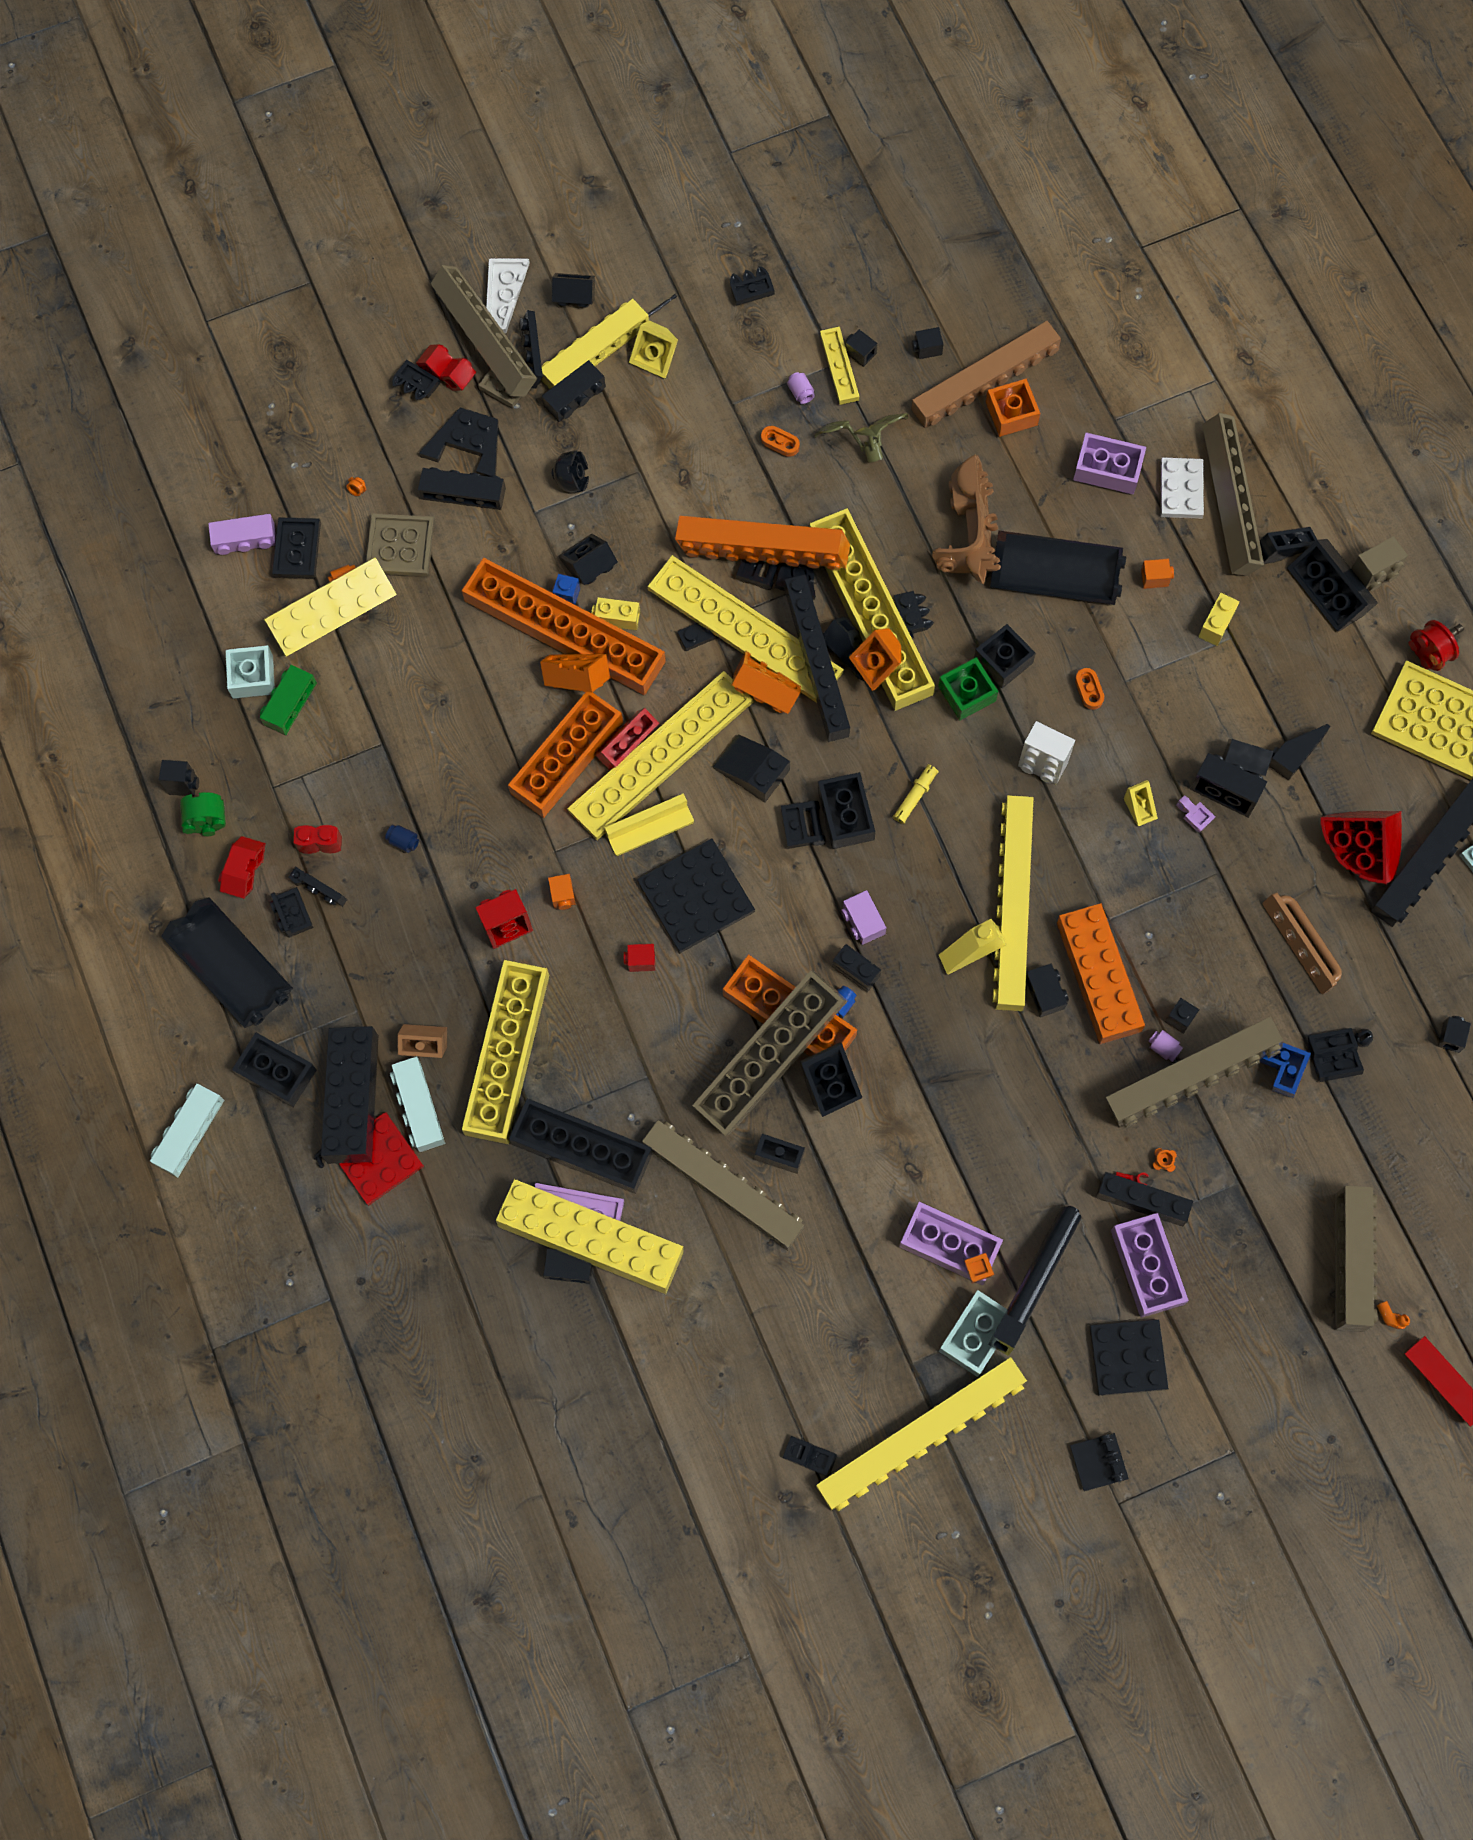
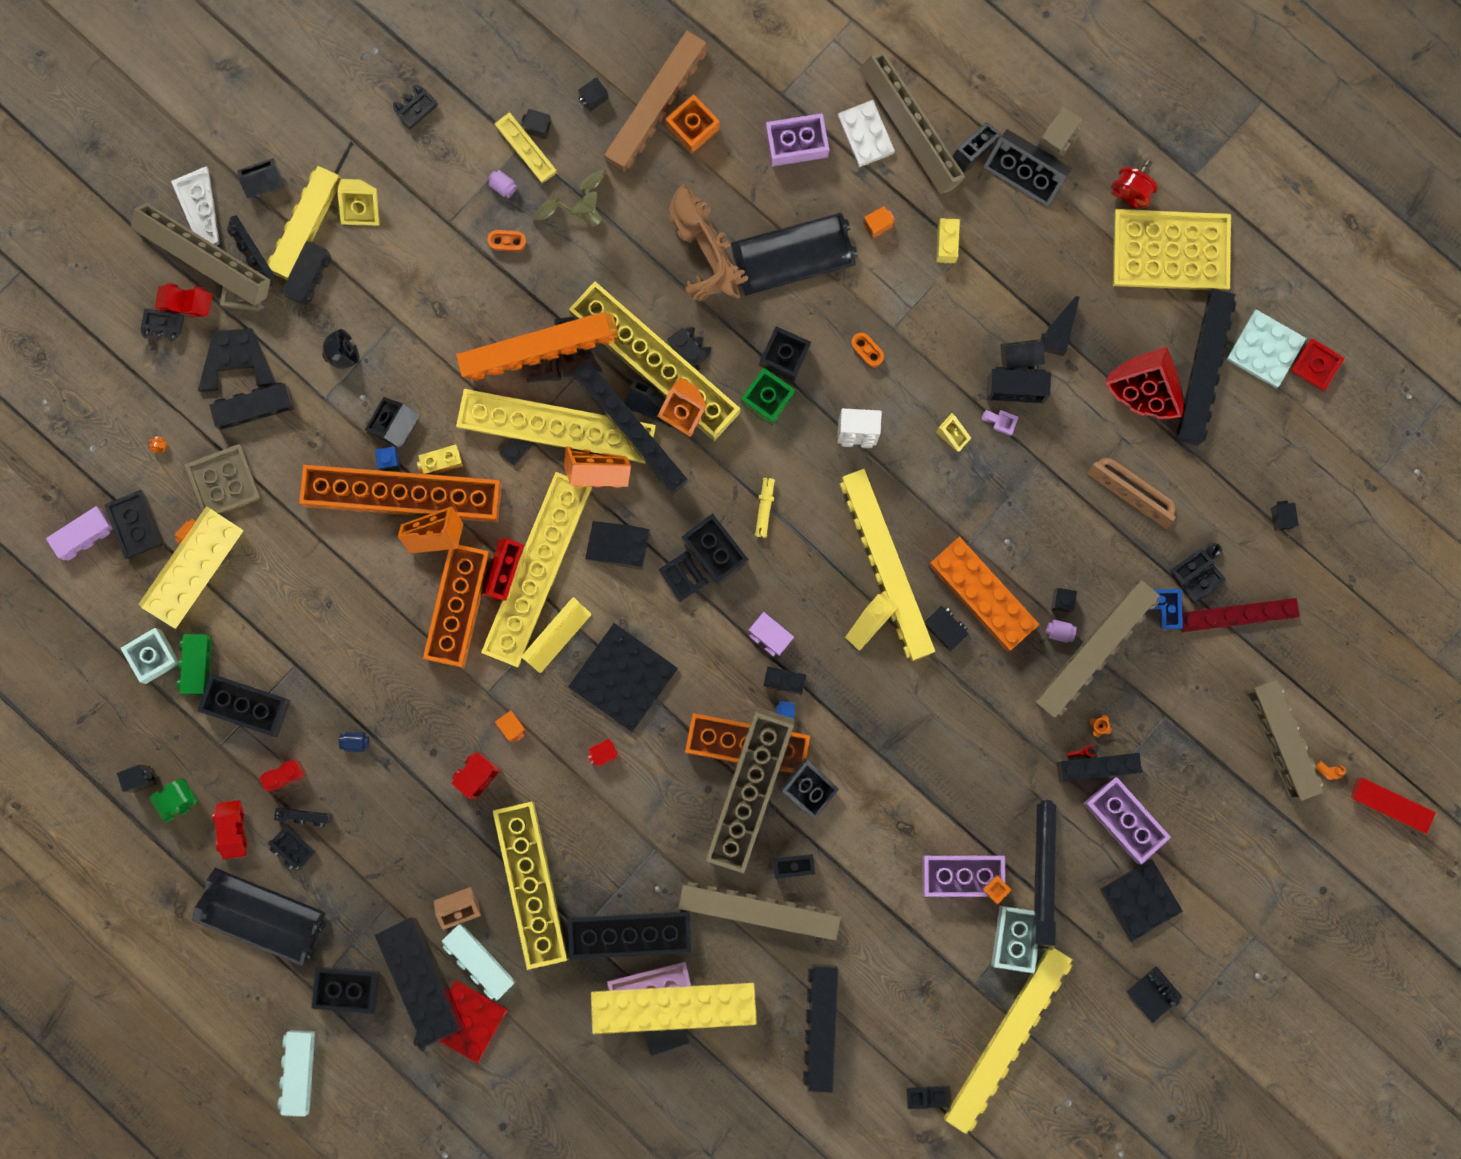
camera: 30 degrees left, 10 degrees up
(314, 756) = (244, 705): none -> black brick
(731, 1328) = (822, 1027): none -> black brick
(1362, 1114) = (1240, 615): none -> dark red plate

